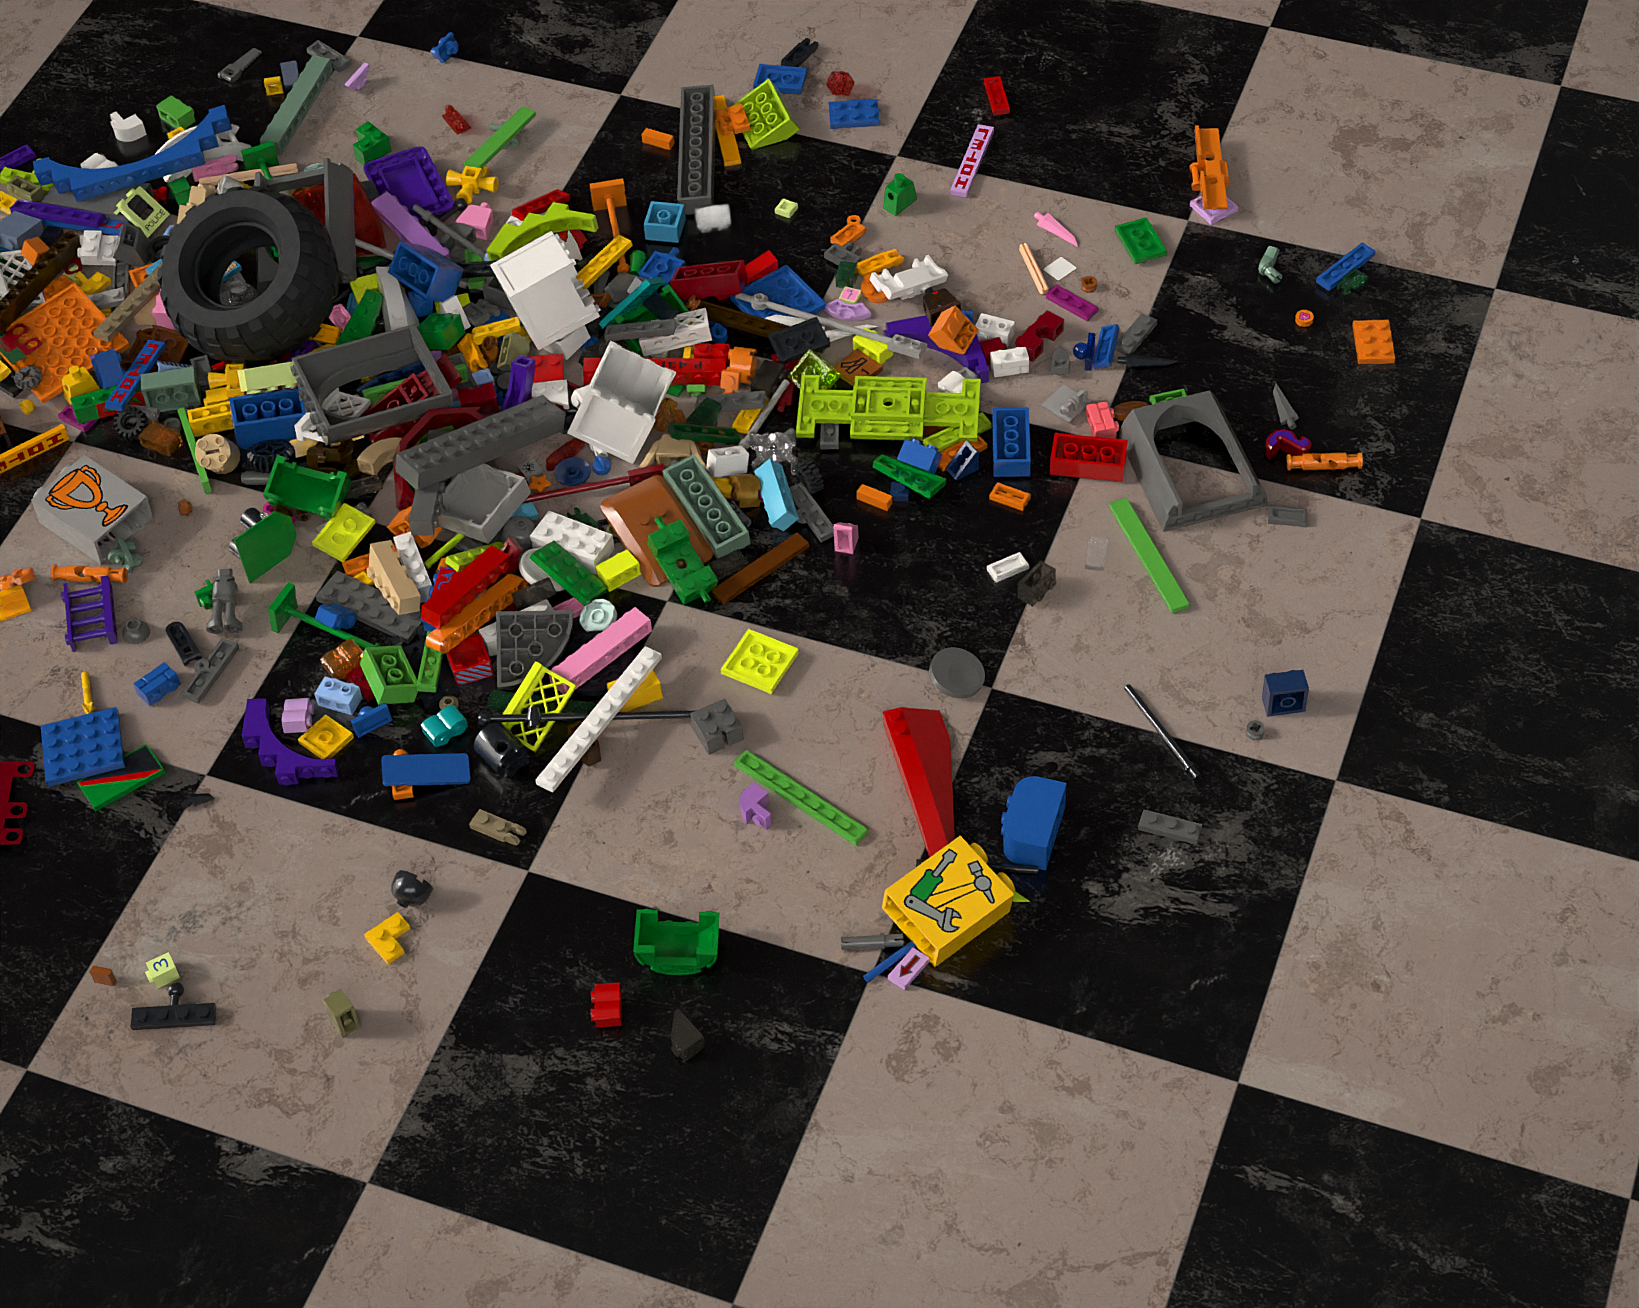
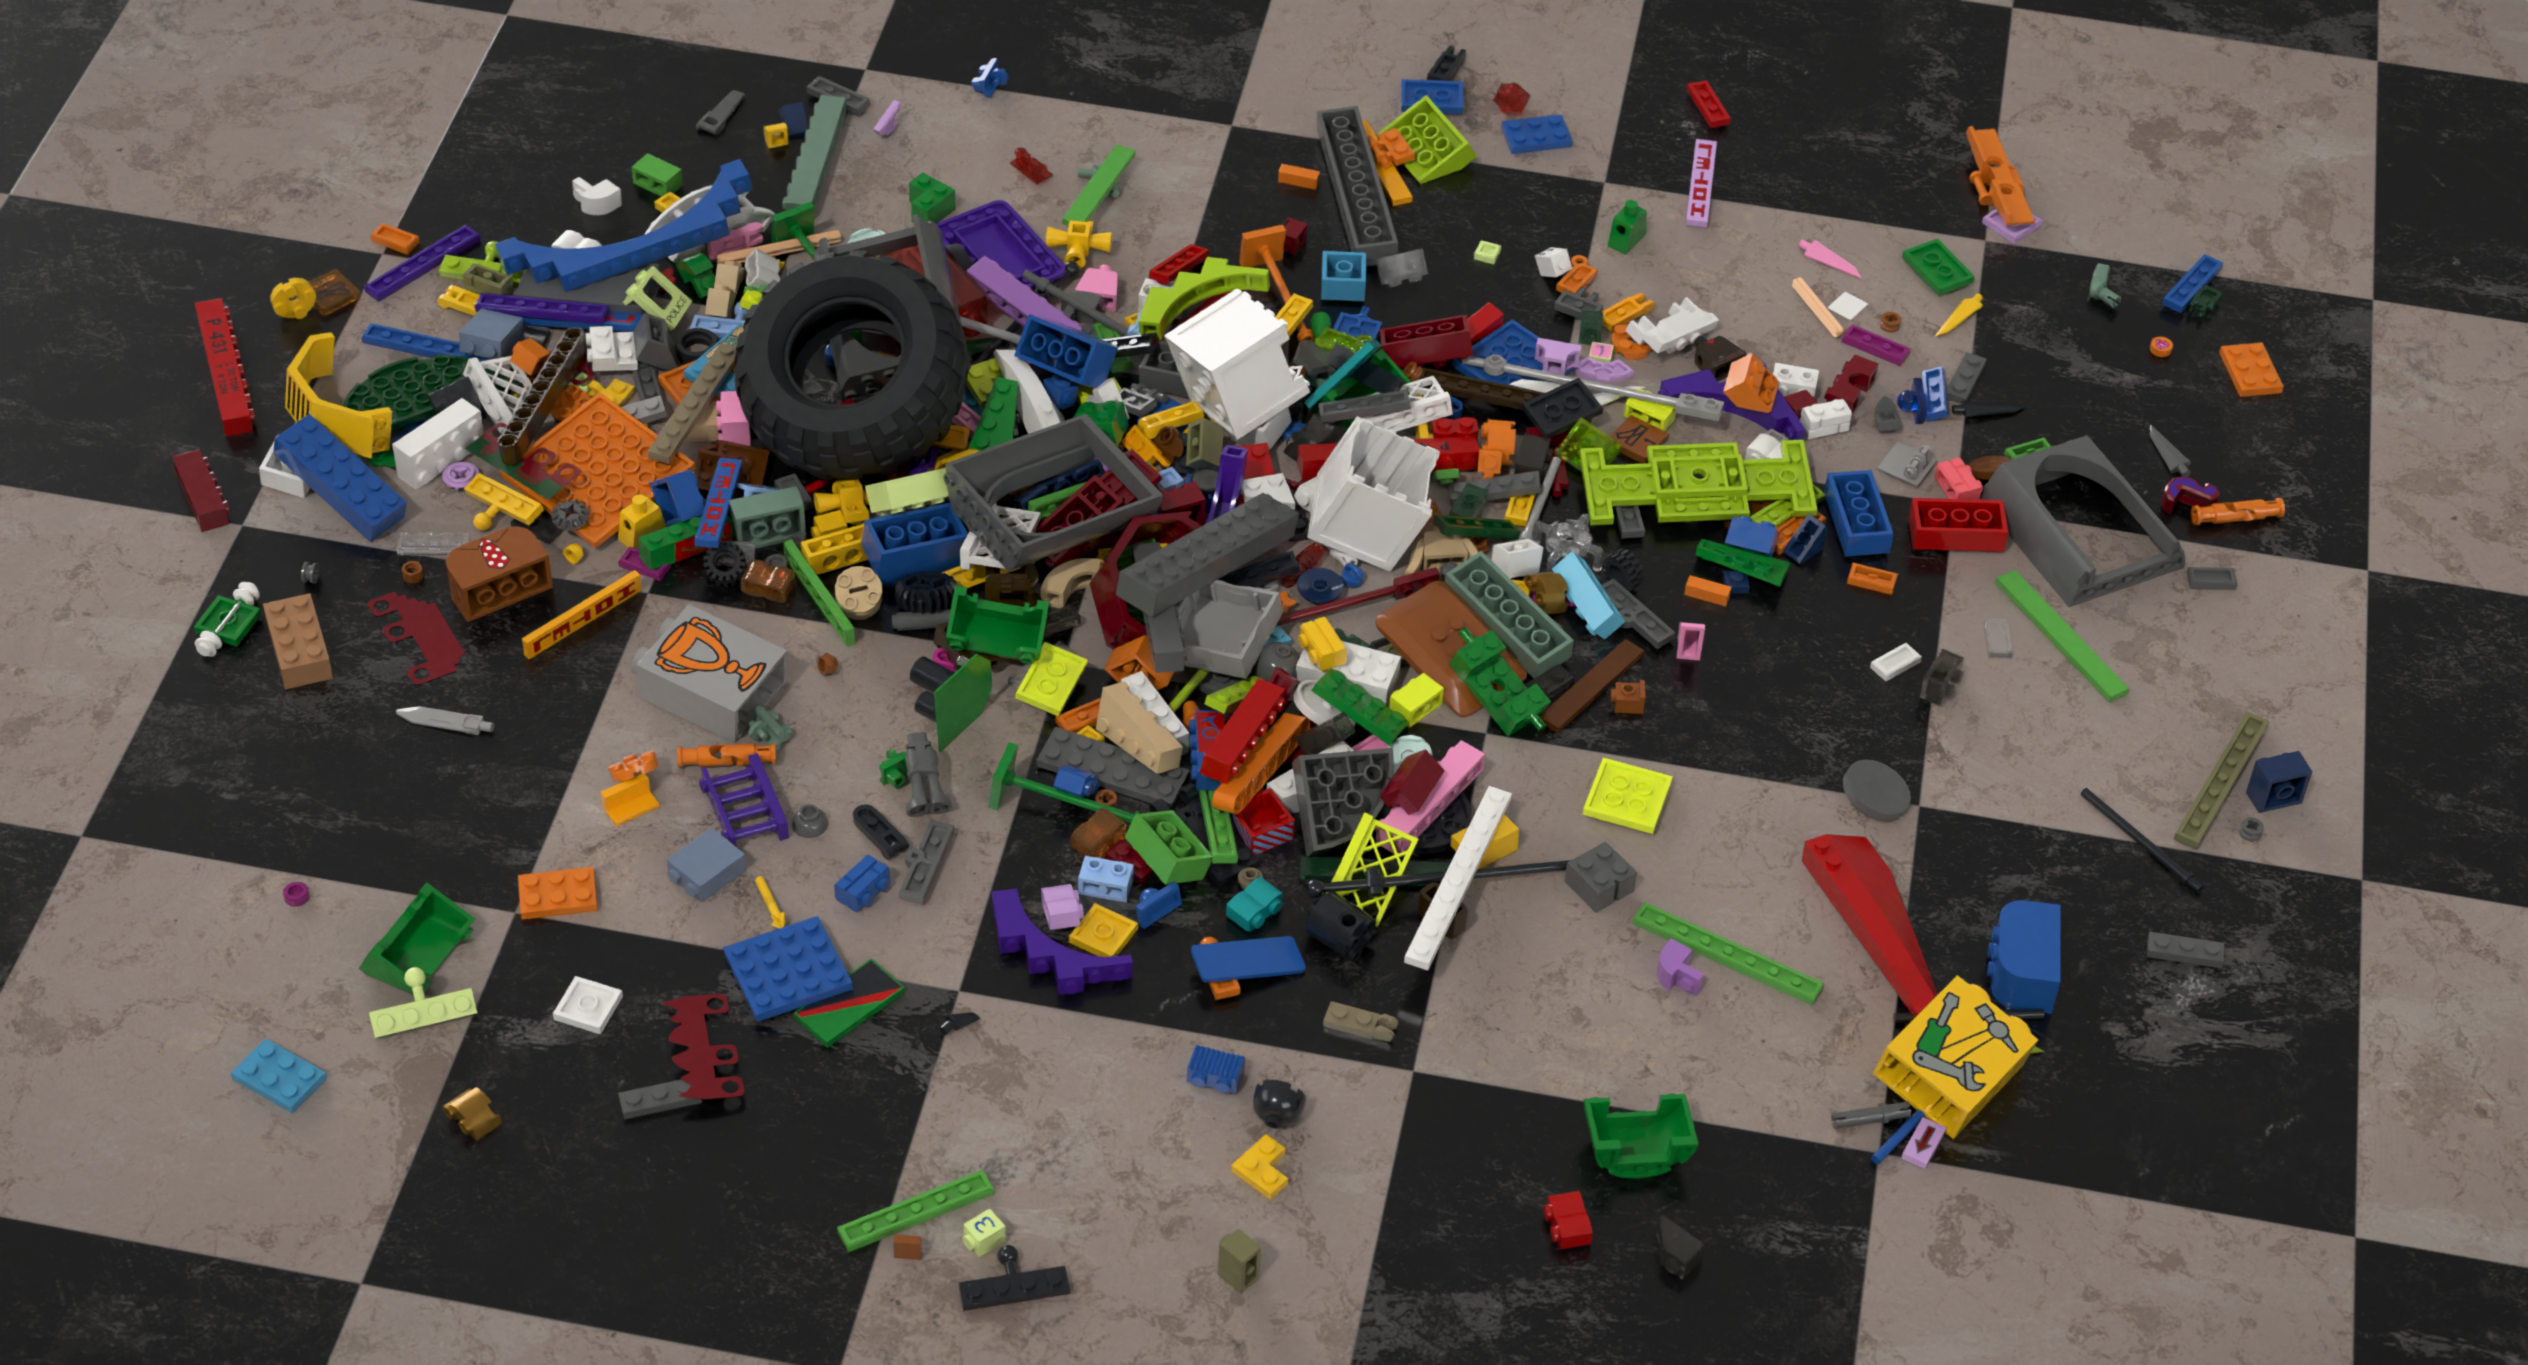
camera: 15 degrees left, 5 degrees down
(47, 660) = (706, 865): none -> sand blue brick
(120, 947) = (915, 1210): none -> bright green tile
(359, 628) = (1107, 795): none -> dark orange bush
(374, 856) = (1215, 1069): none -> blue brick
(526, 459) = (1264, 571): none -> black tile
(550, 521) = (1322, 644): none -> yellow brick
(583, 639) = (1412, 782): none -> dark red piece
(637, 187) = (1295, 235): none -> dark red brick
(644, 273) = (1329, 337): none -> clear neon green hinge
(784, 580) = (1628, 697): none -> dark orange brick
(809, 297) = (1557, 356): none -> lavender brick
(832, 219) = (1553, 262): none -> white brick
(1153, 277) = (1963, 311): none -> yellow bar
(1241, 687) = (2221, 780): none -> olive plate

